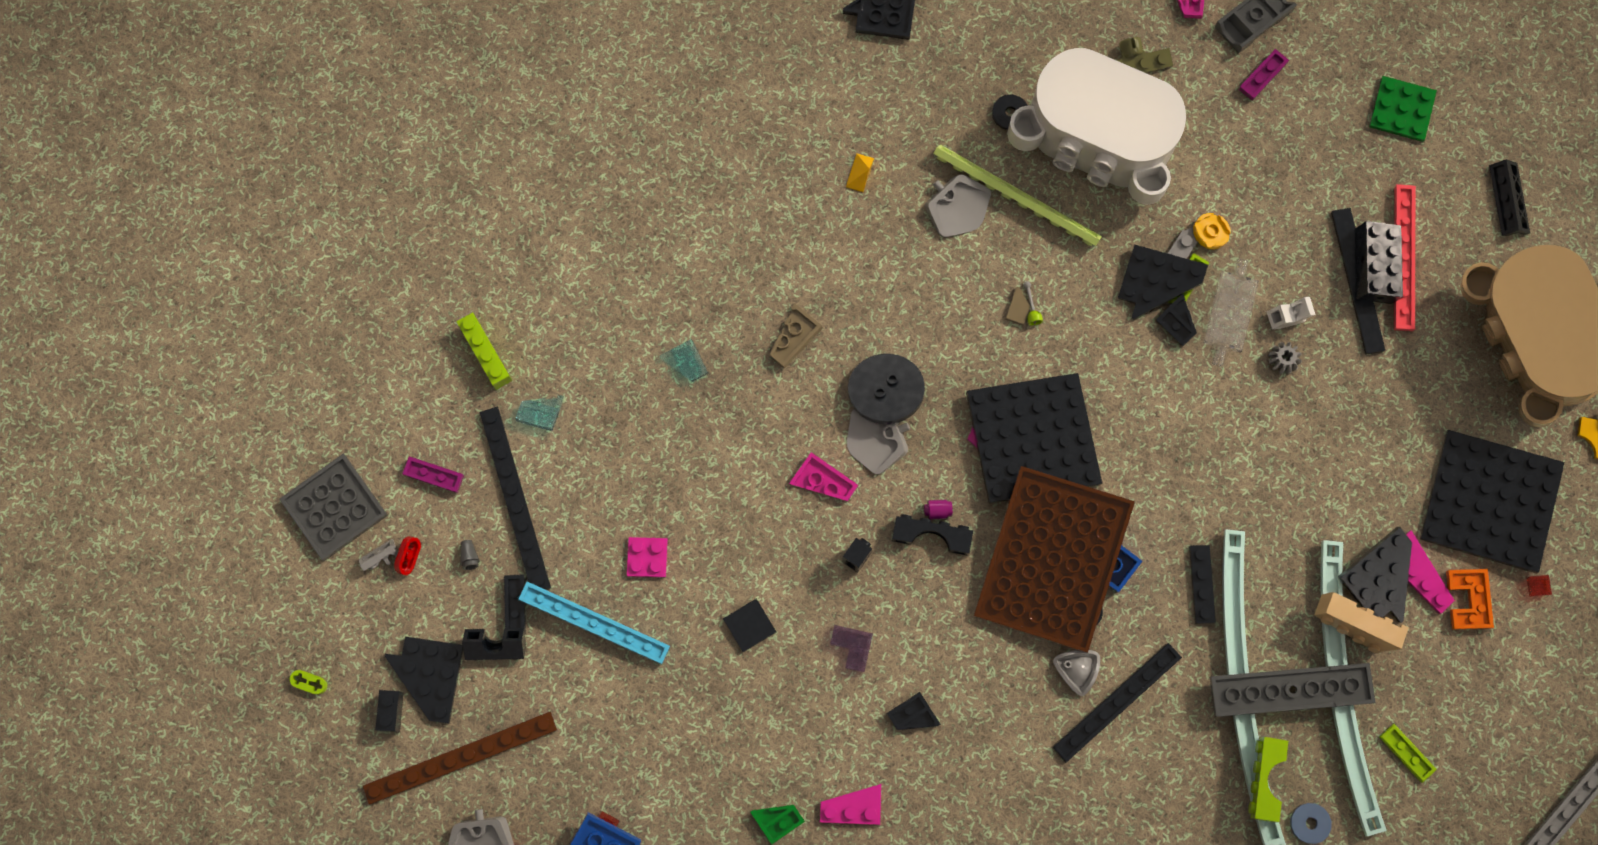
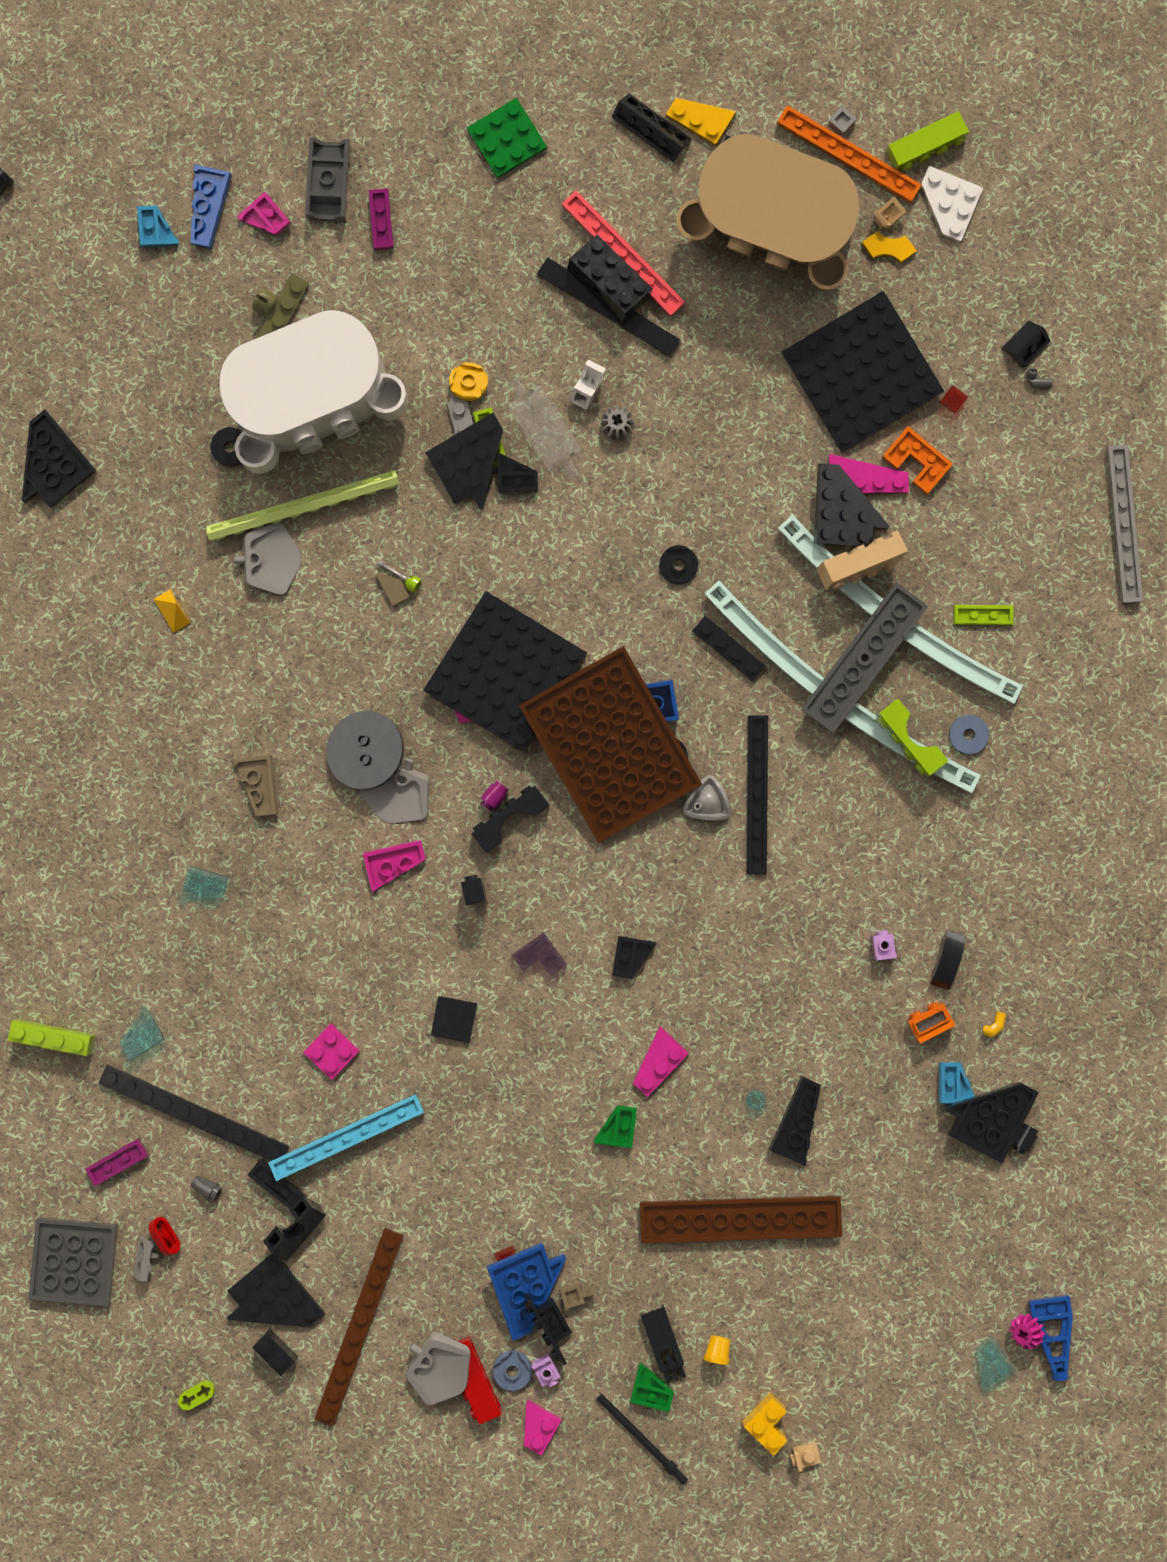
camera: 50 degrees left, 10 degrees up
(1221, 503) = (678, 576): none -> black tile
(1549, 224) = (701, 119): none -> yellow wing

